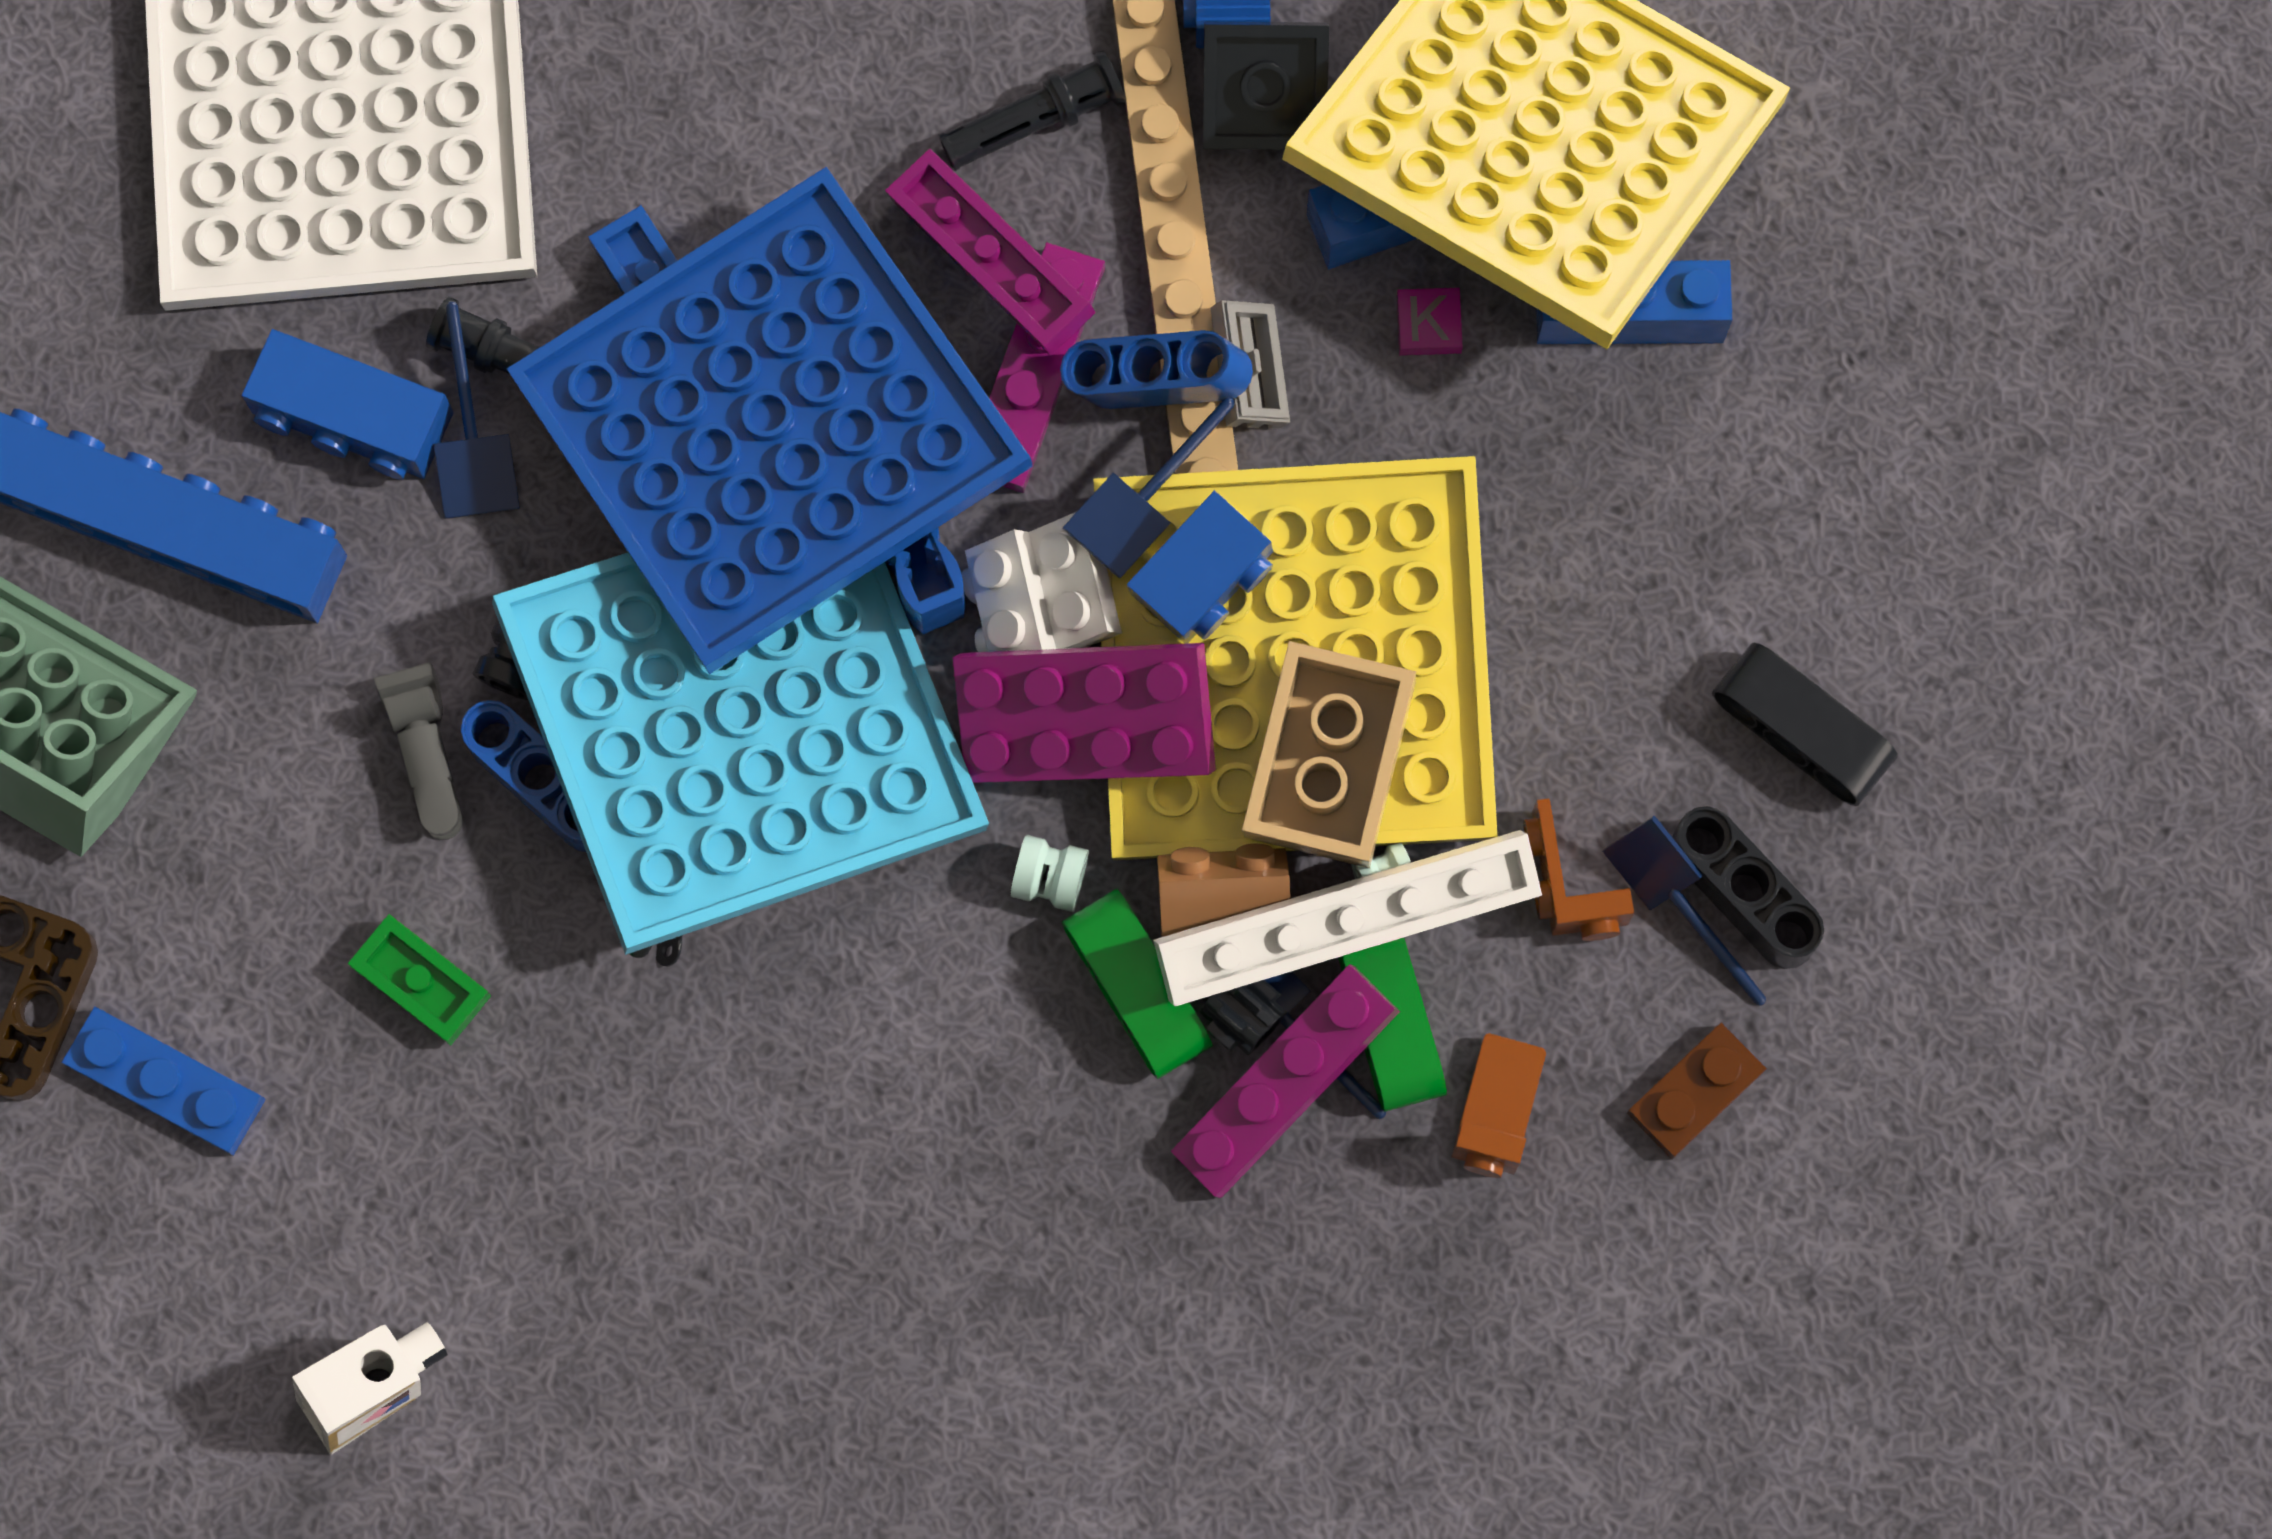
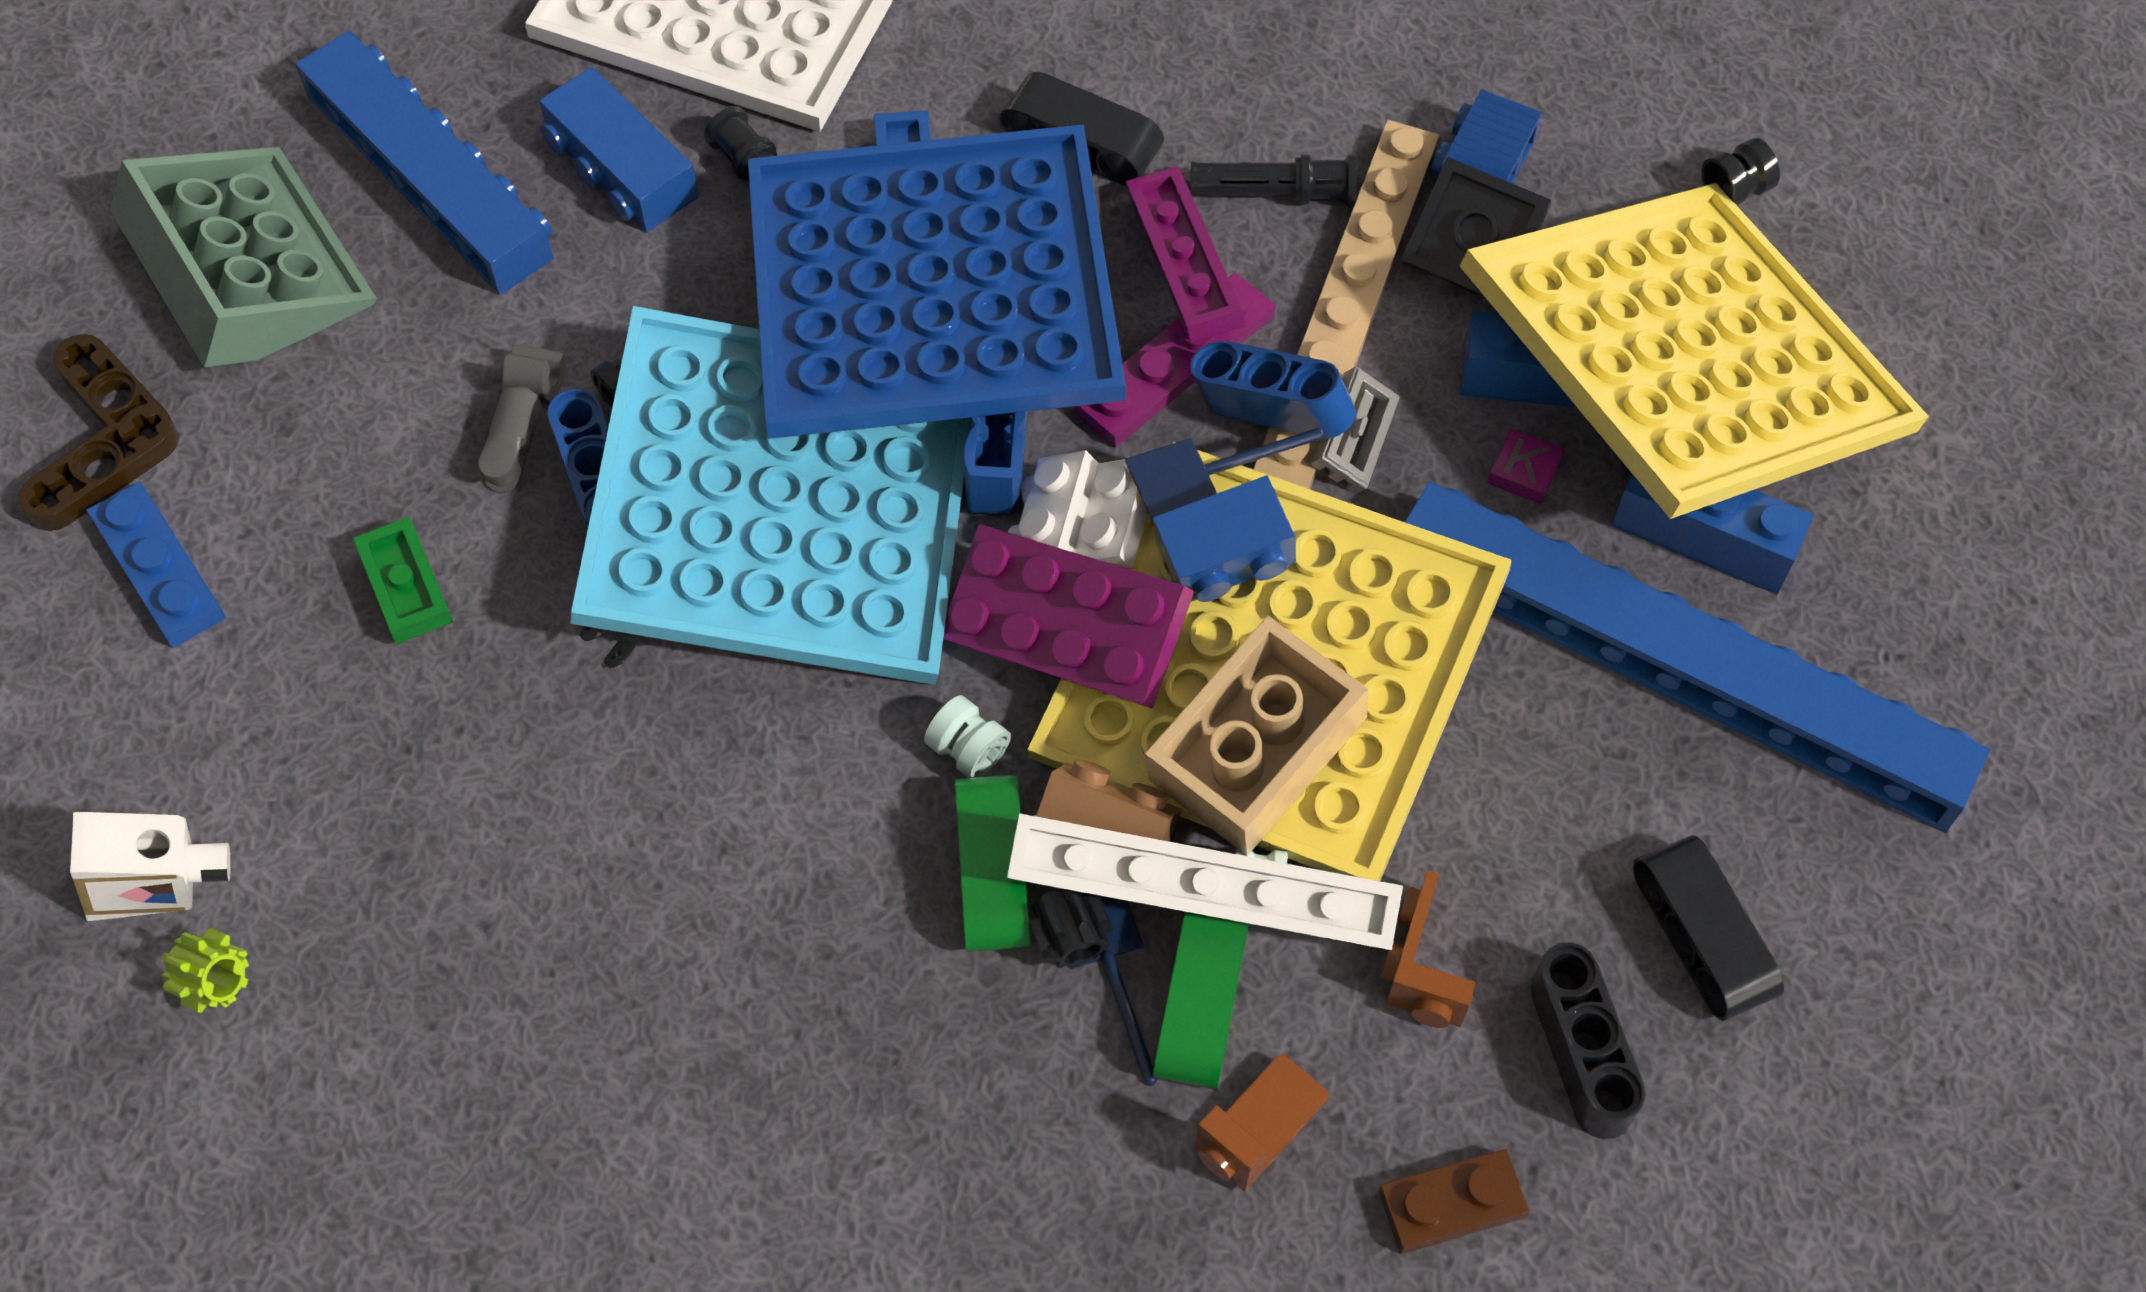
camera: 25 degrees right, 15 degrees down
(473, 472) = (687, 239): dark blue piece -> none
(482, 1448) = (205, 970): none -> lime gear
(794, 144) = (1117, 138): none -> black beam
(1285, 1081) = (1076, 1002): magenta plate -> none
(1660, 871) = (1508, 987): dark blue piece -> none
(1685, 454) = (1717, 666): none -> blue brick

